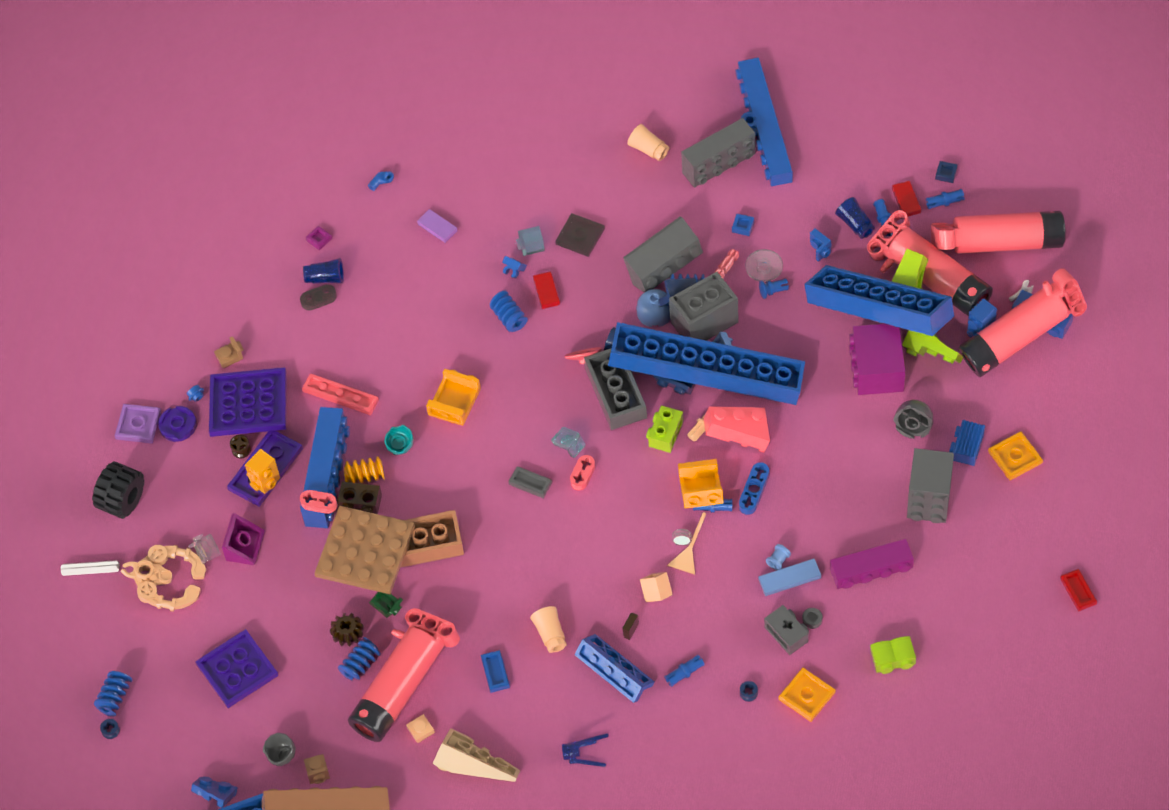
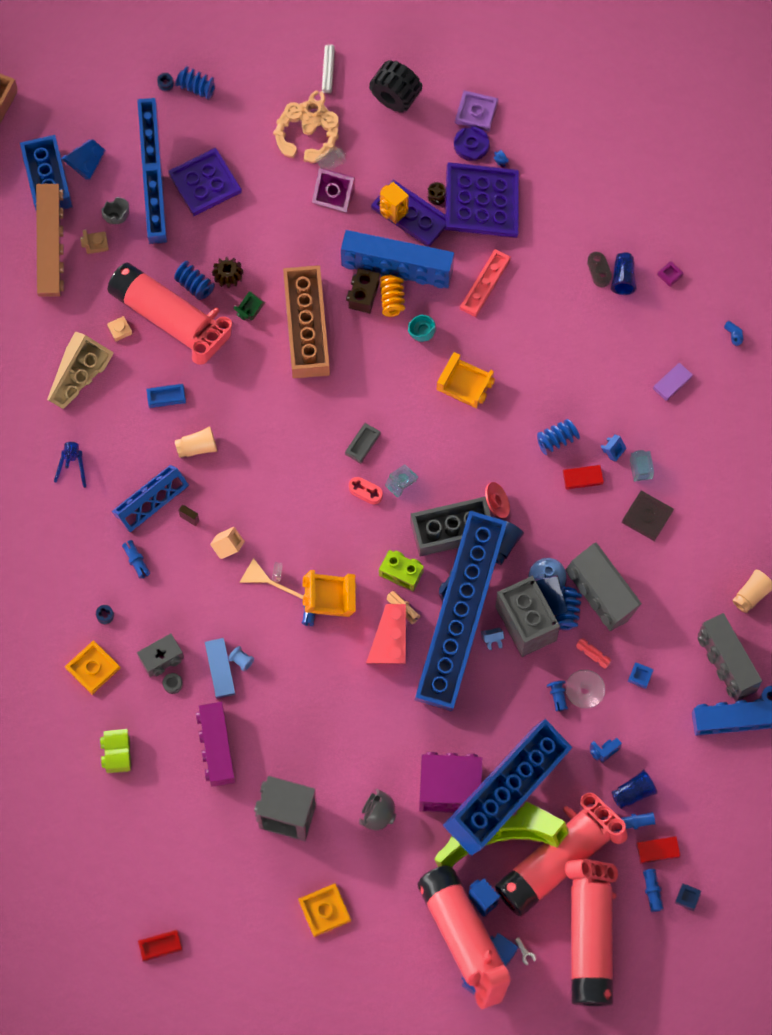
camera: 90 degrees right, 10 degrees up
(229, 353) = (543, 189): medium nougat bracket -> none
(232, 712) = (152, 171): none -> blue hinge
(317, 502) = (351, 244): coral beam -> none
(364, 550) = (296, 284): medium nougat plate -> none
(755, 496) = (321, 639): blue beam -> none
(968, 442) = (342, 861): blue brick -> none

